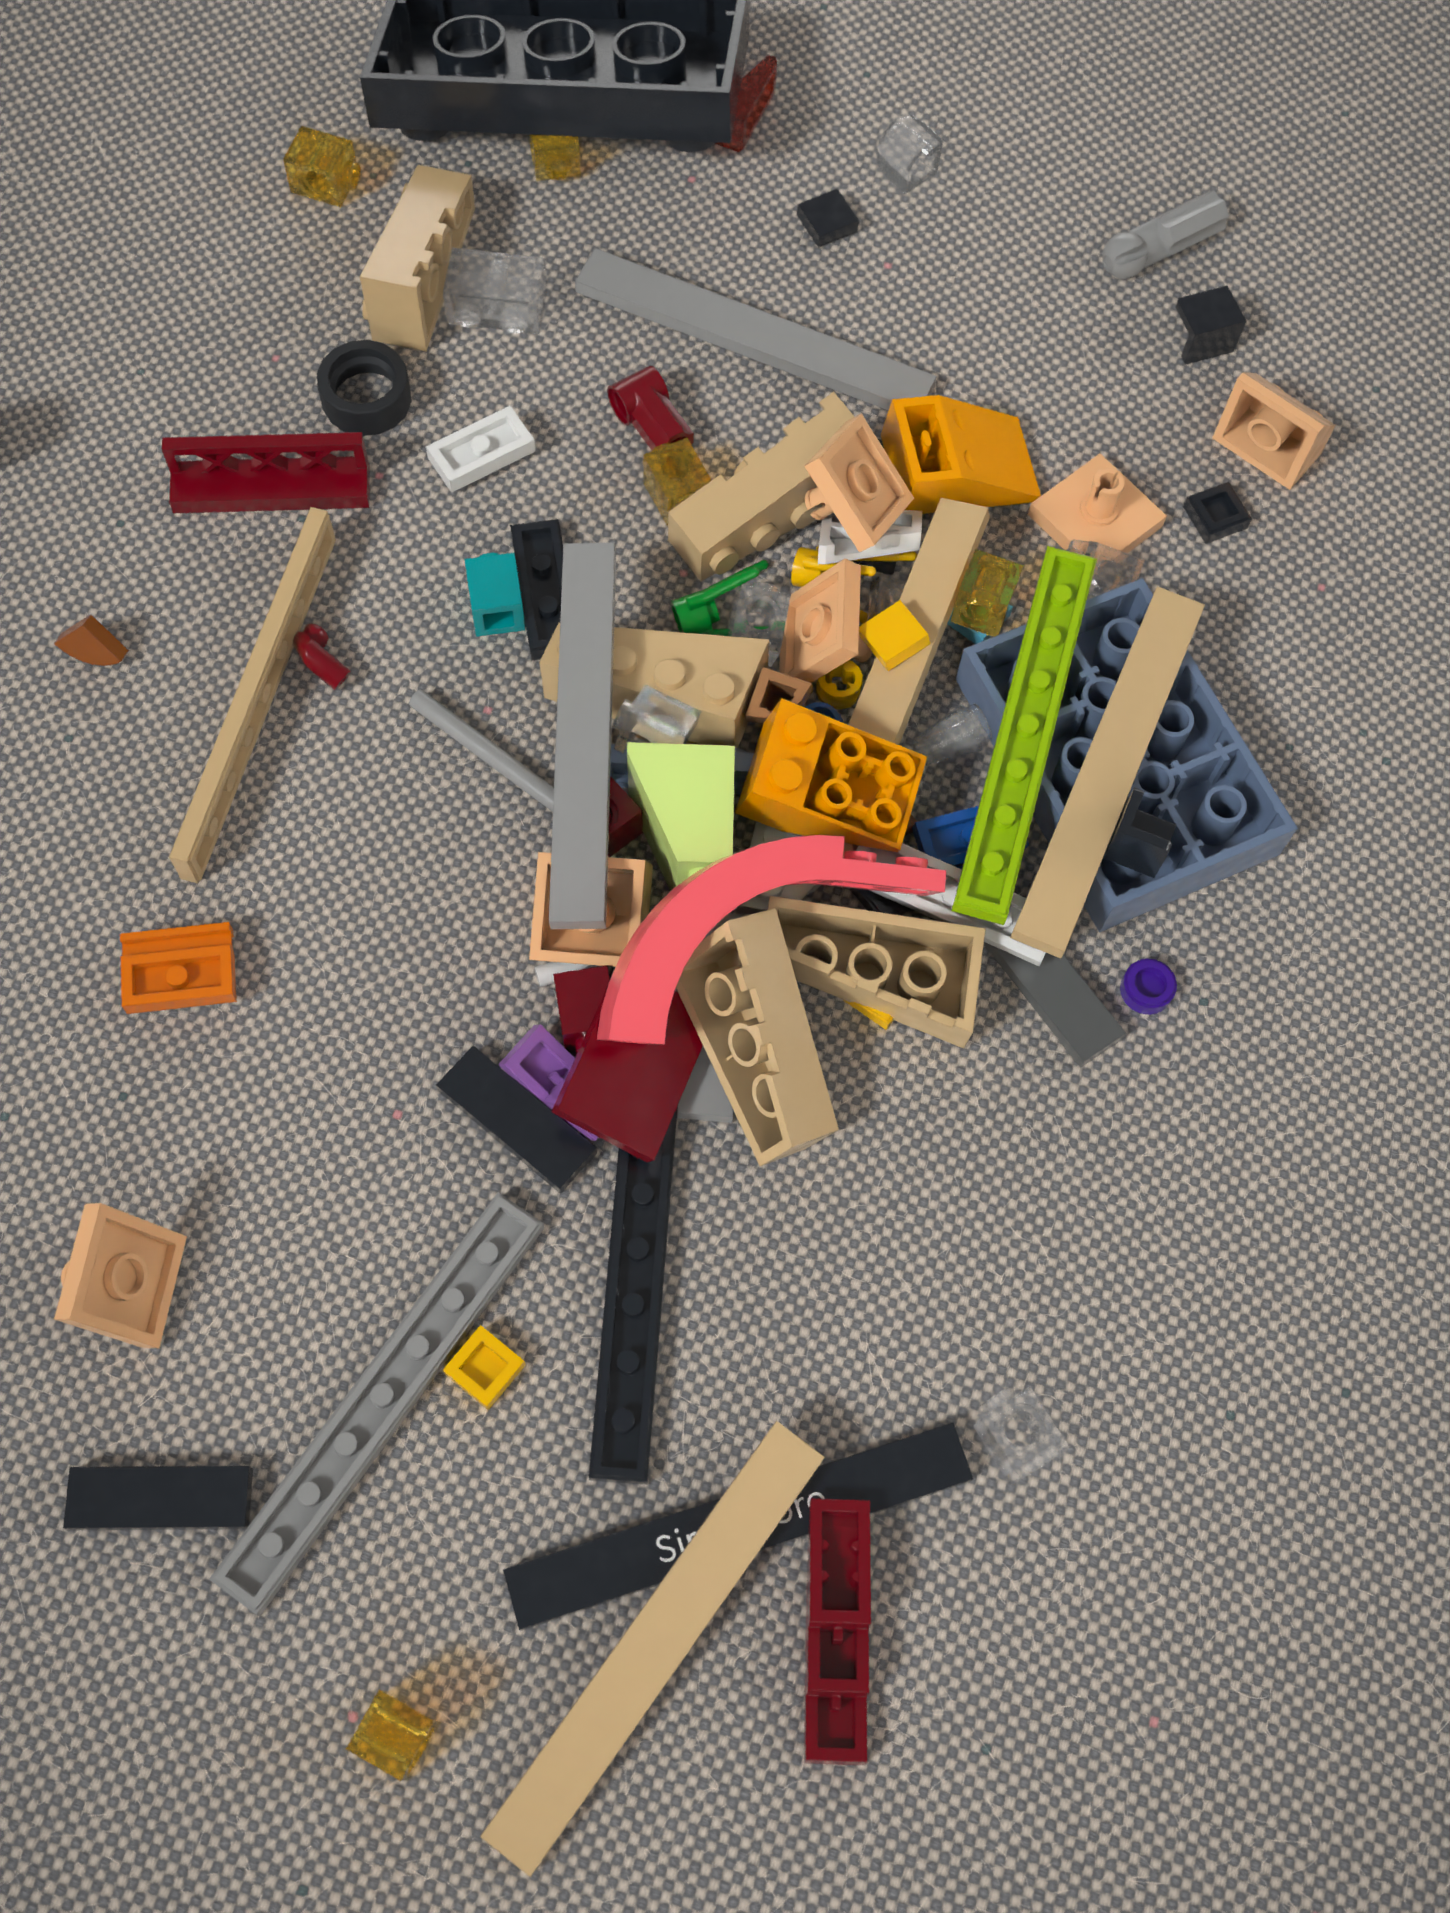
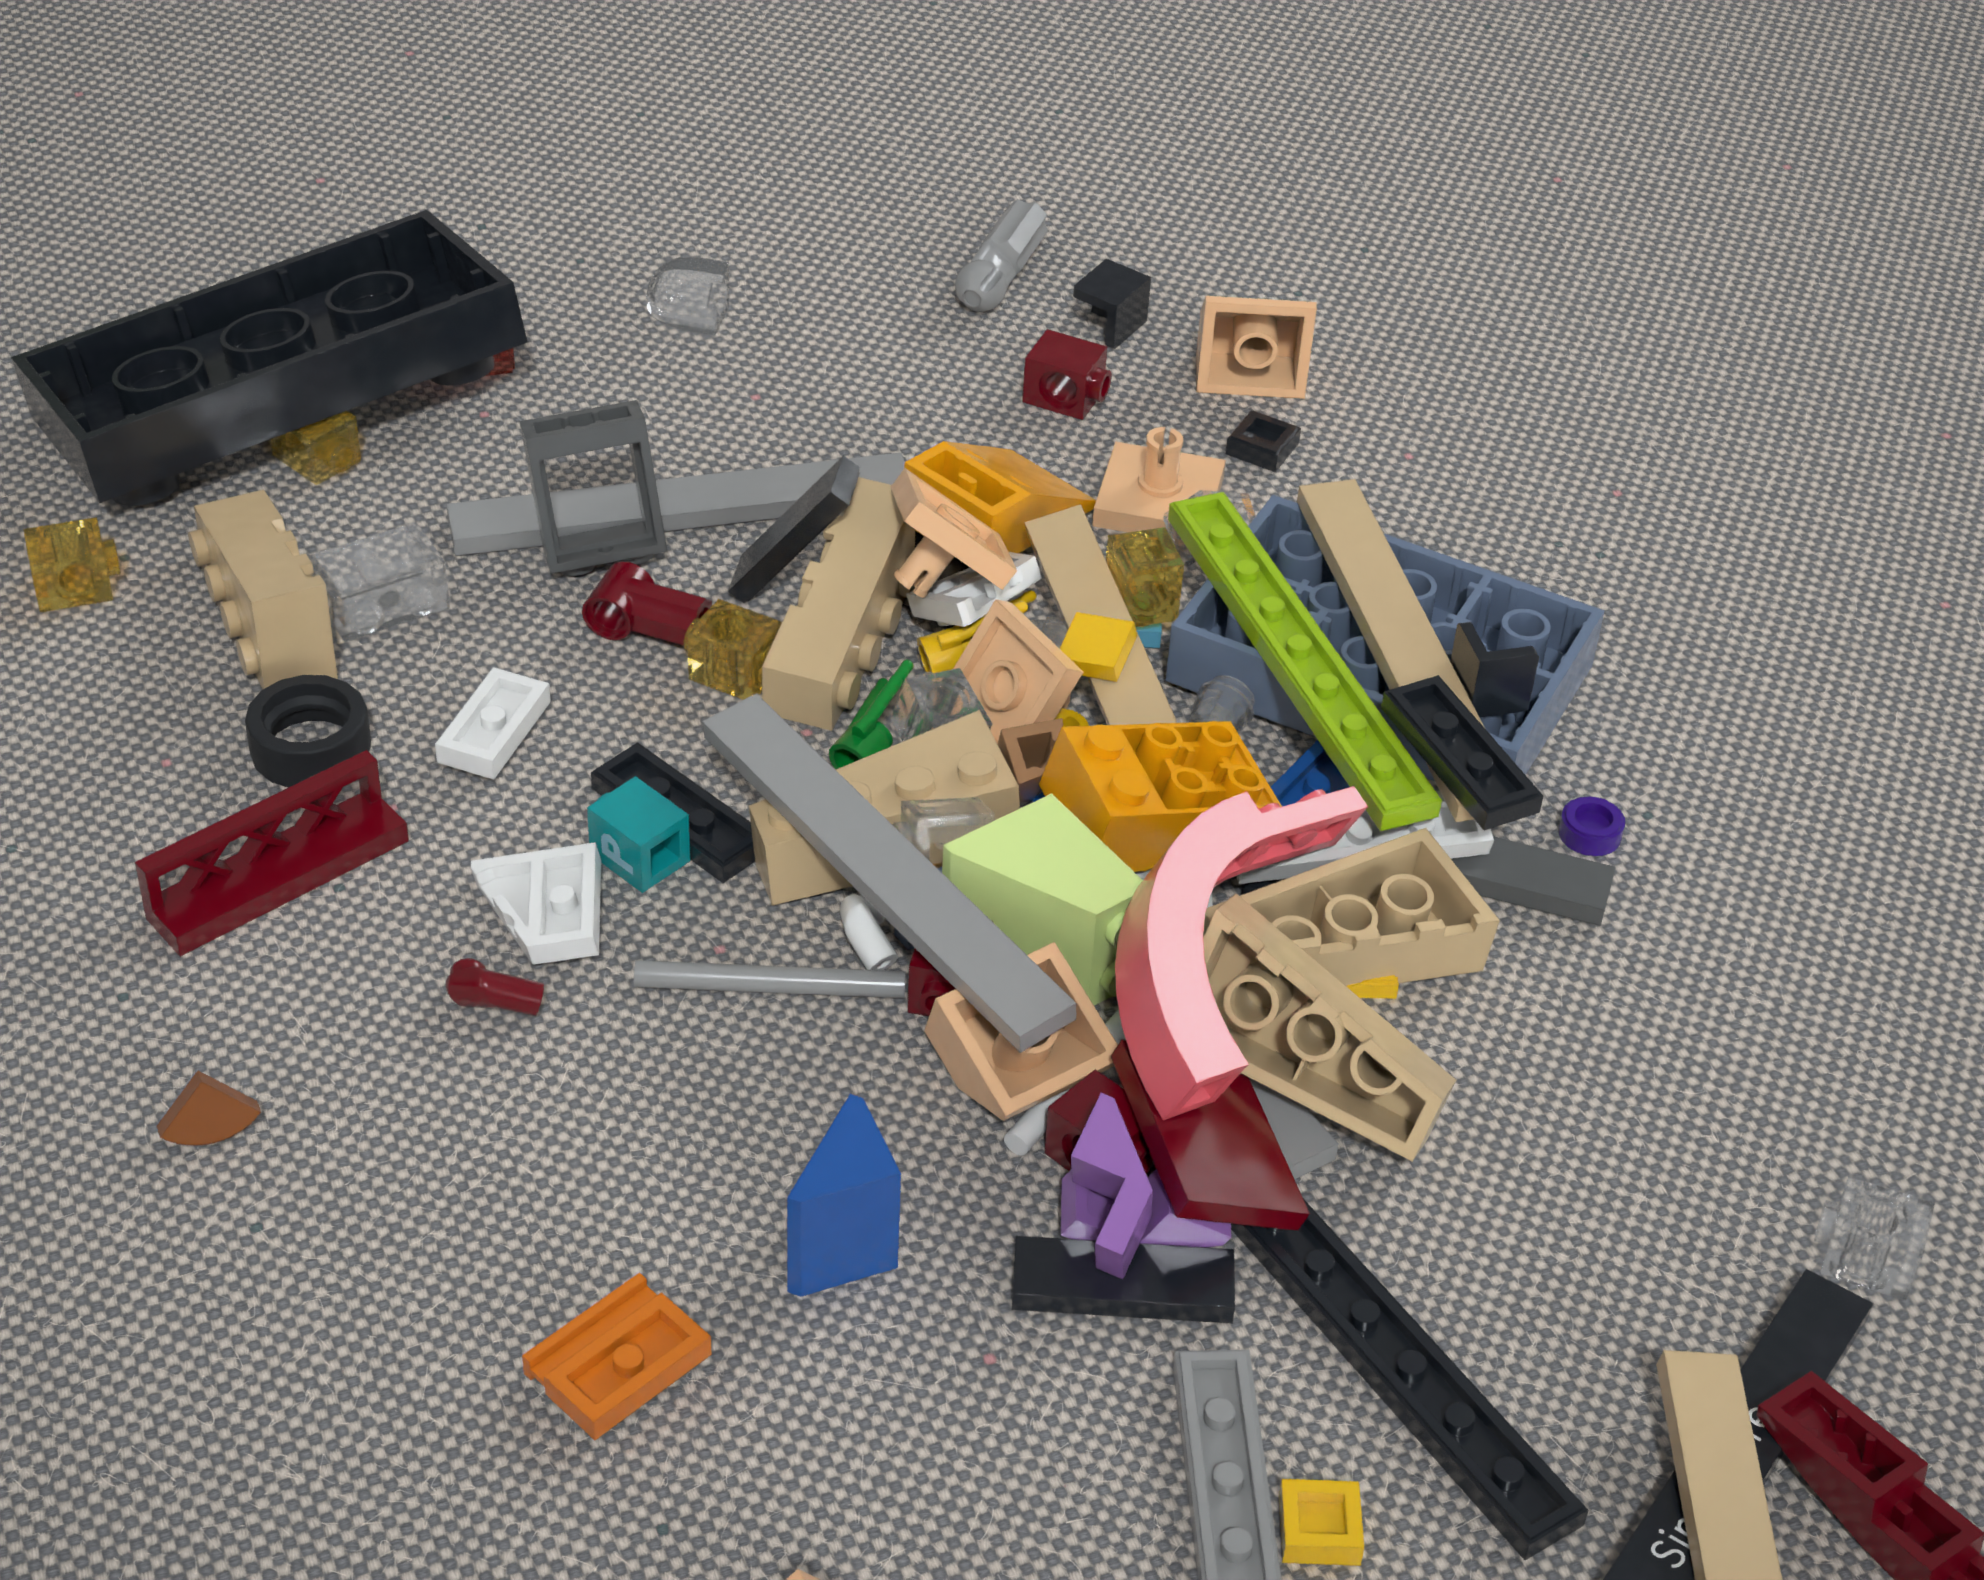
camera: 35 degrees left, 25 degrees down
(253, 698) = (462, 1065): tan tile -> none
(370, 957) = (844, 1206): none -> blue slope
(403, 611) = (546, 899): none -> white wing
(543, 1045) = (1110, 1165): none -> medium lavender slope
(685, 257) = (585, 432): none -> dark grey window
(778, 411) = (795, 529): none -> black tile
(827, 217) = (661, 381): black tile -> none
(1051, 890) = (1462, 752): none -> black tile
(1113, 372) = (1066, 374): none -> dark red brick

